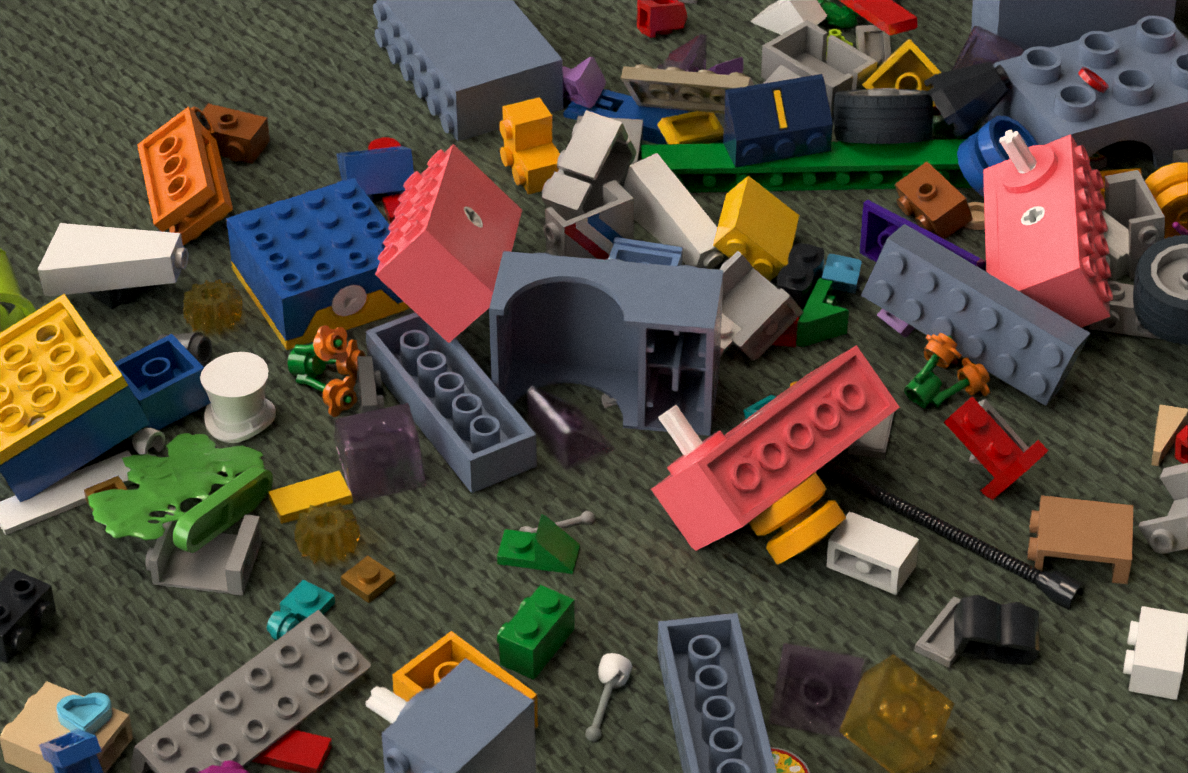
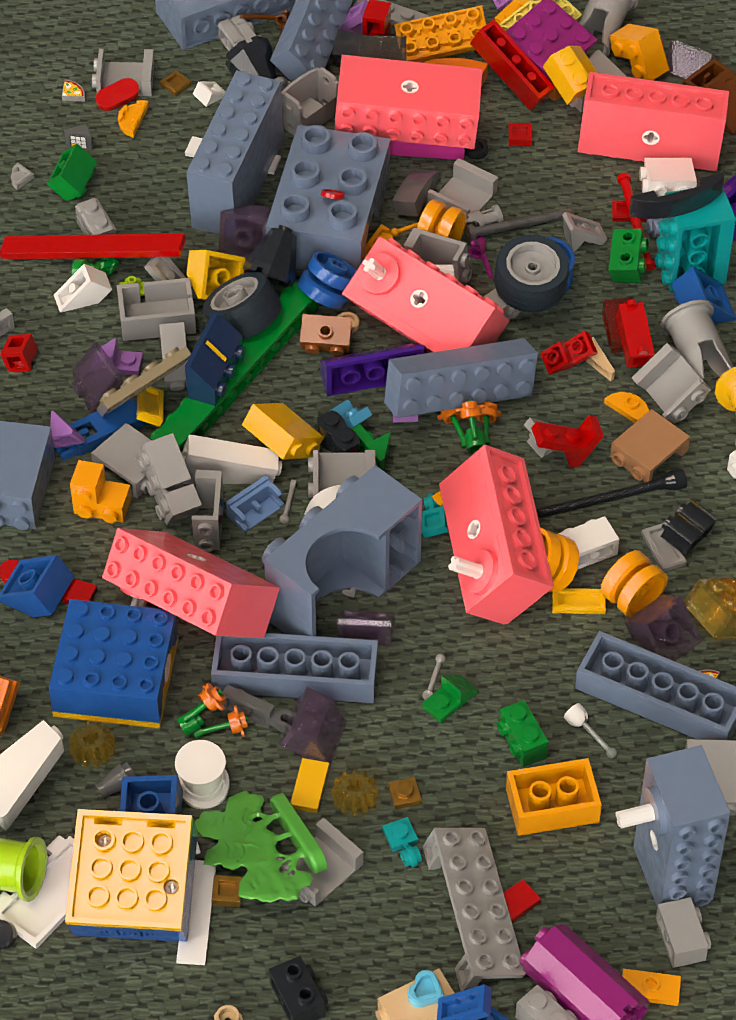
camera: 55 degrees left, 10 degrees up
(790, 594) = (578, 601): none -> yellow tile
(848, 612) = (633, 583): none -> light orange wheel
(1131, 490) = (628, 405): none -> light orange plate
(1137, 402) = (568, 354): none -> red slope

